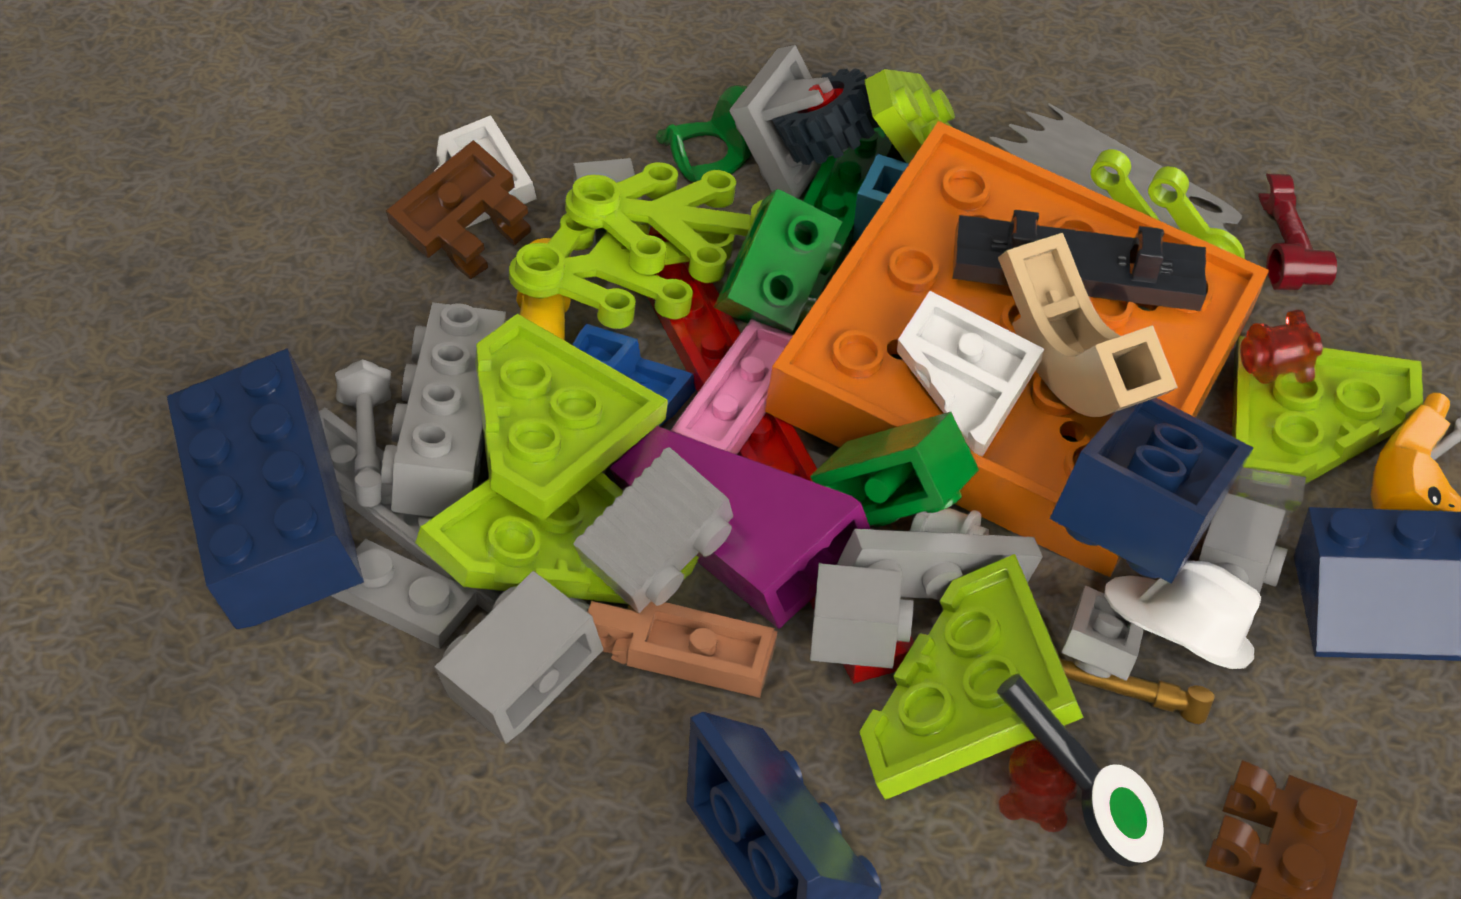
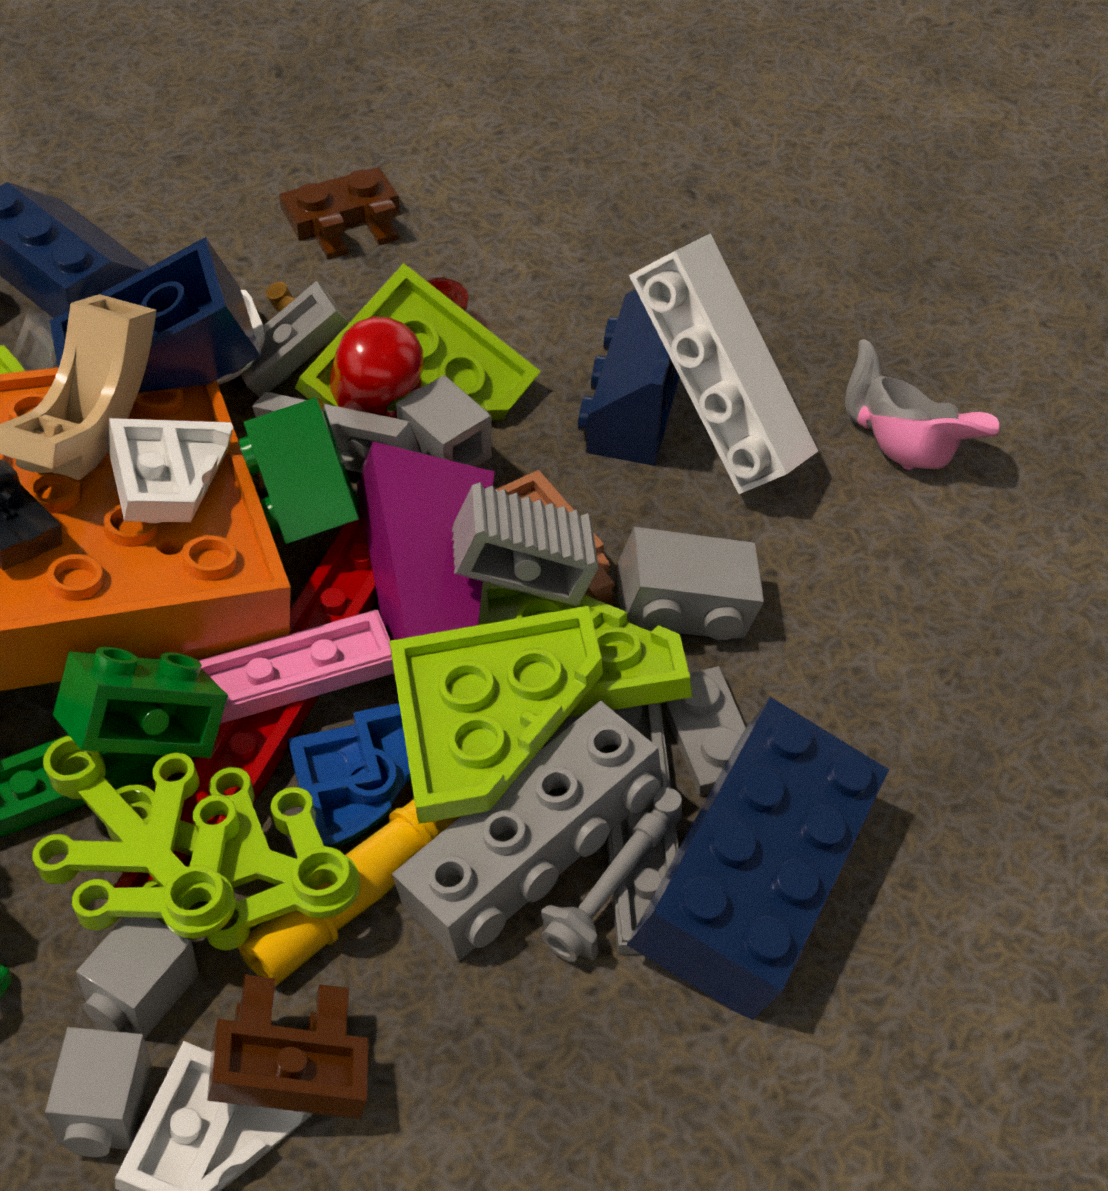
camera: 135 degrees left, 5 degrees up
(550, 144) = (98, 1090): none -> light grey brick
(668, 795) = (724, 364): none -> white brick
(950, 569) = (376, 365): none -> red helmet
(1115, 799) = (430, 266): piece -> none

